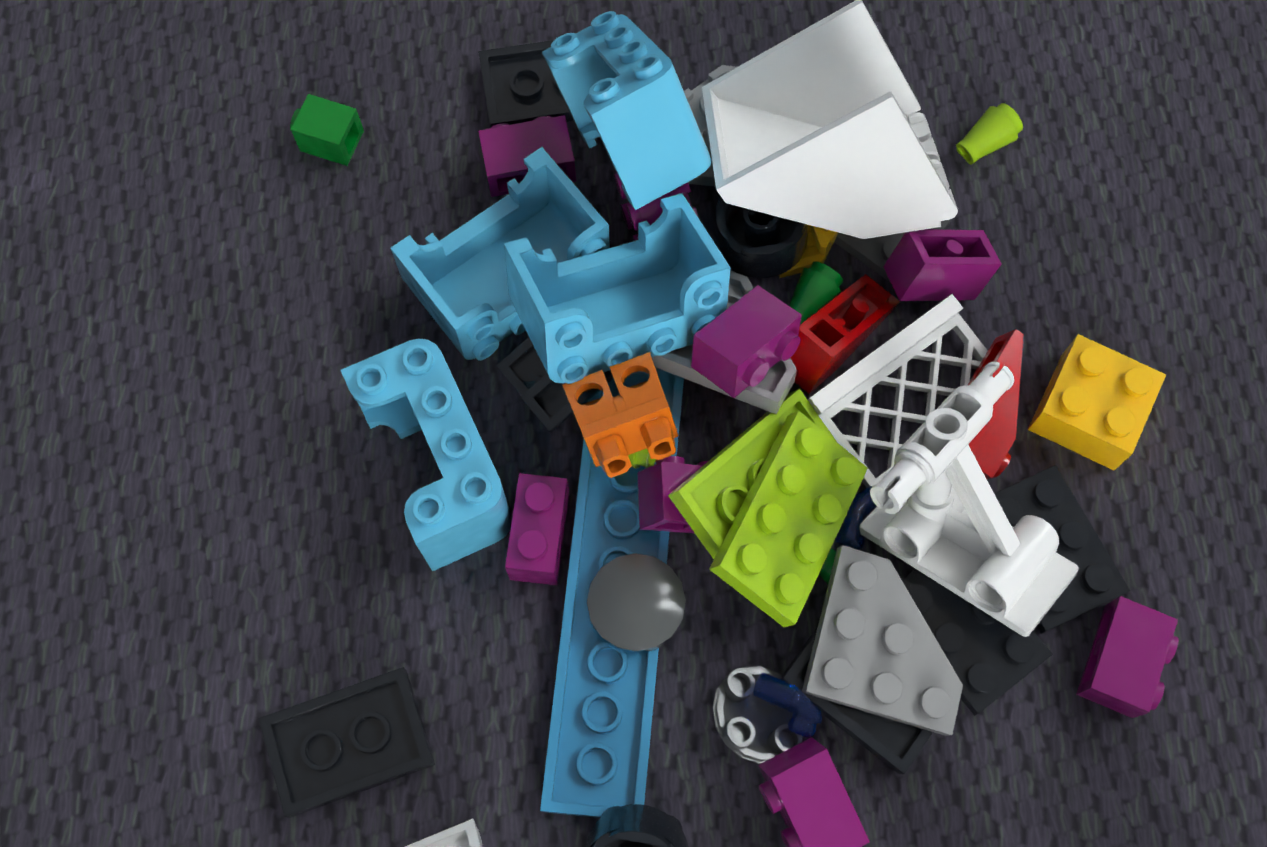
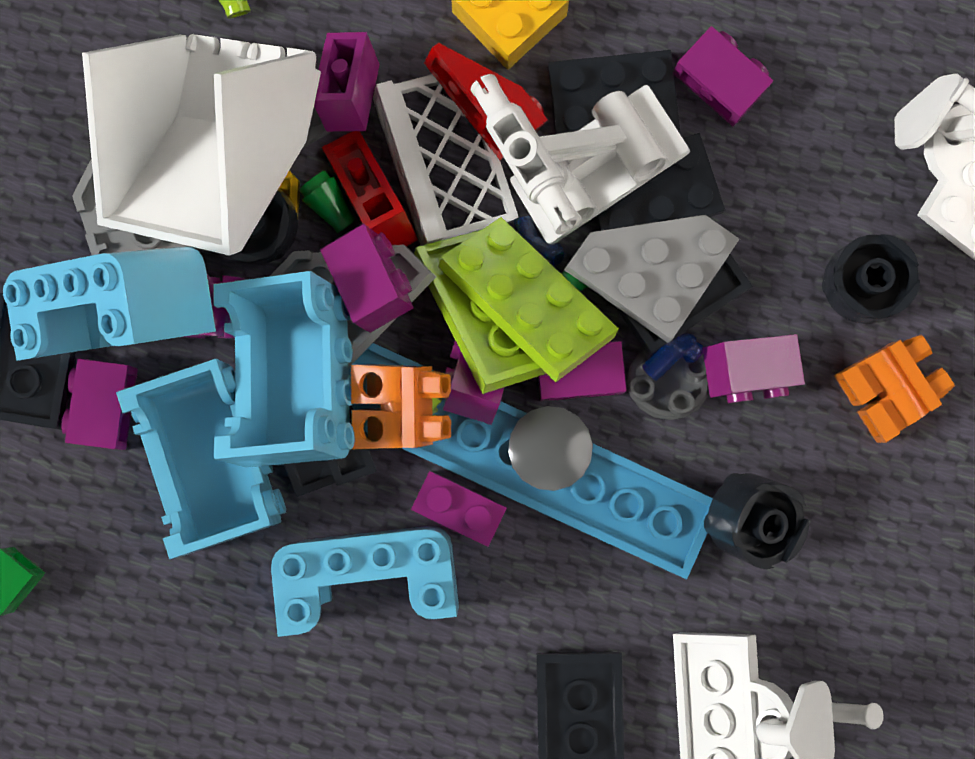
camera: 70 degrees left, 15 degrees up
(733, 622) = (596, 376): none -> magenta brick

